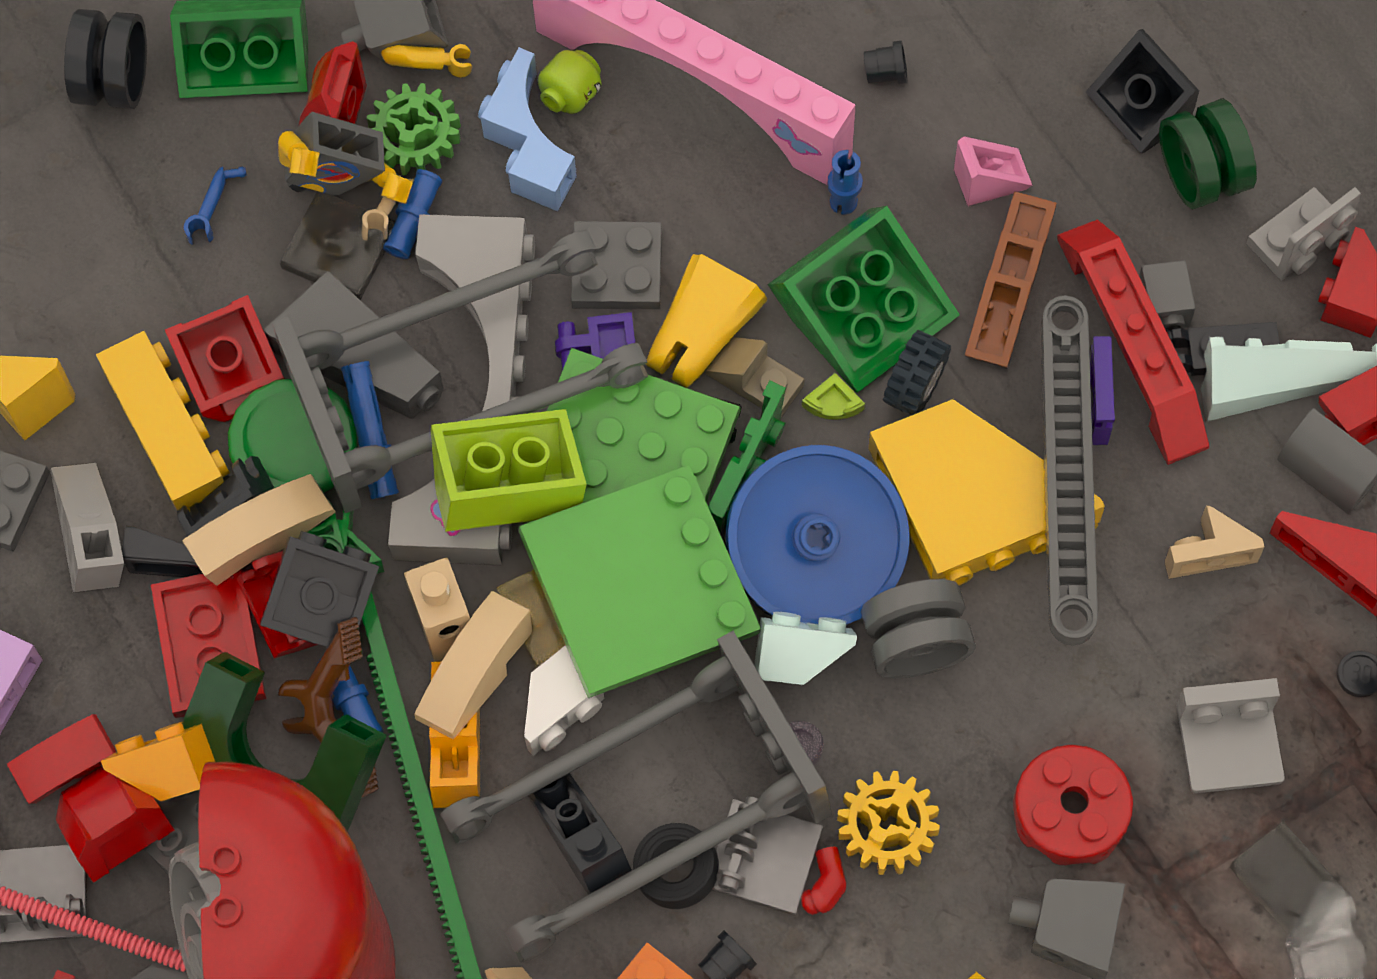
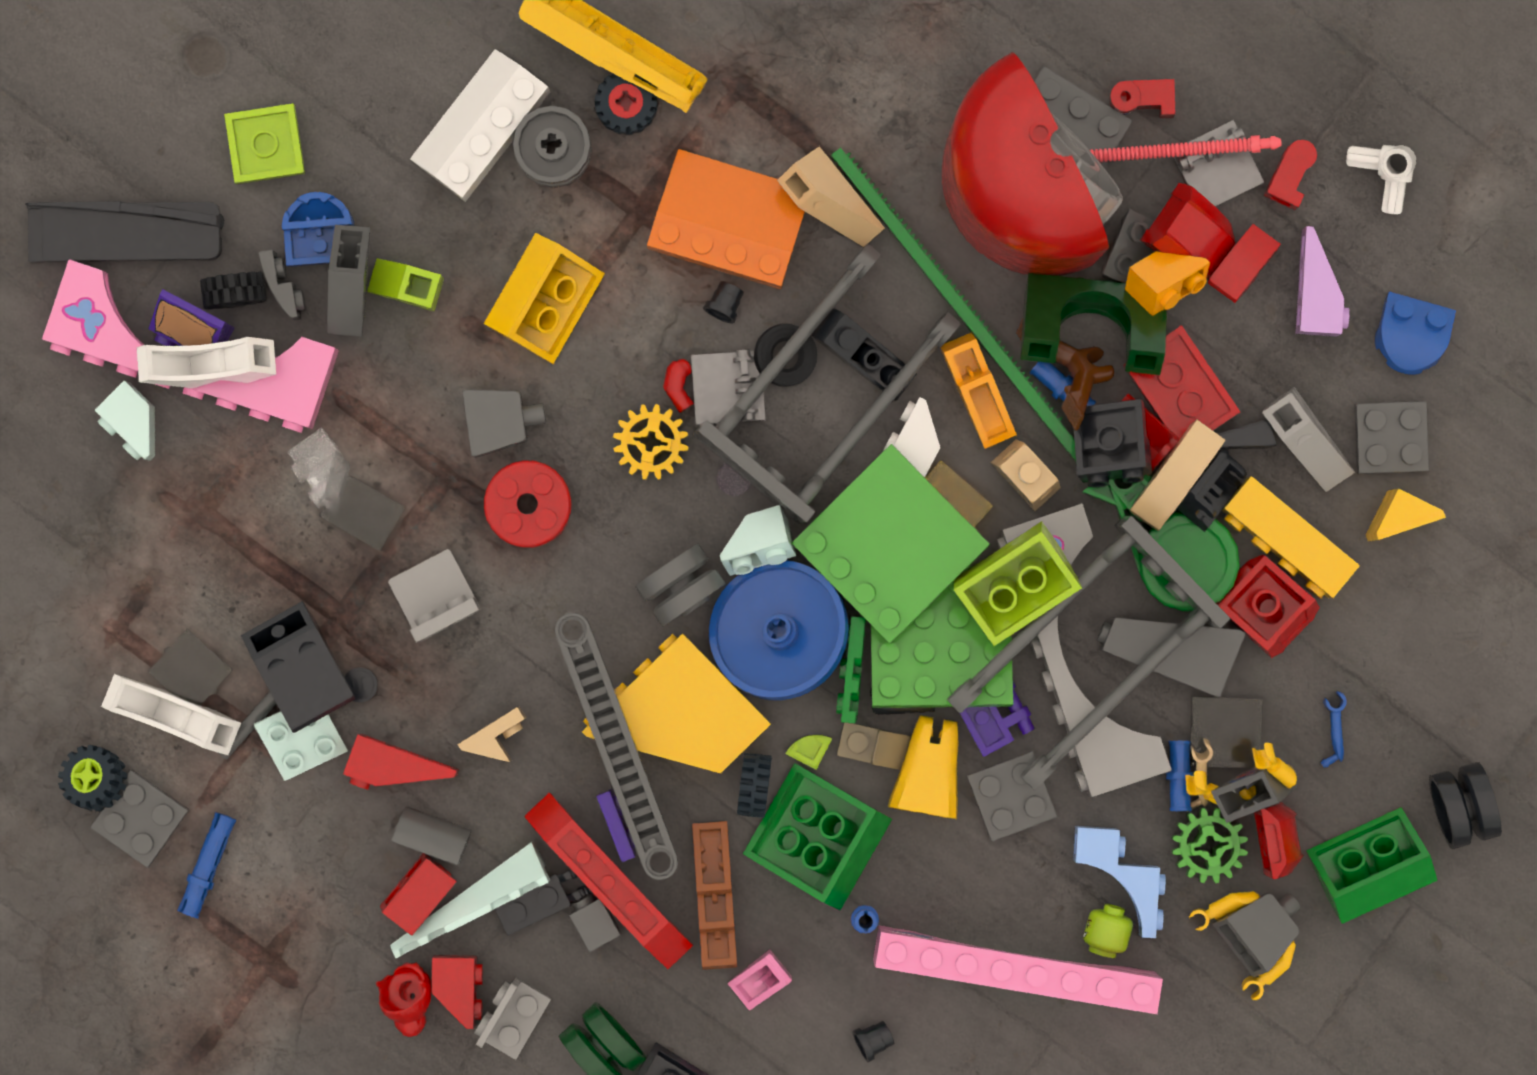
camera: 155 degrees right, 20 degrees up
(368, 420) = (1125, 575): blue pin -> none
(474, 664) = (982, 436): tan slope -> none

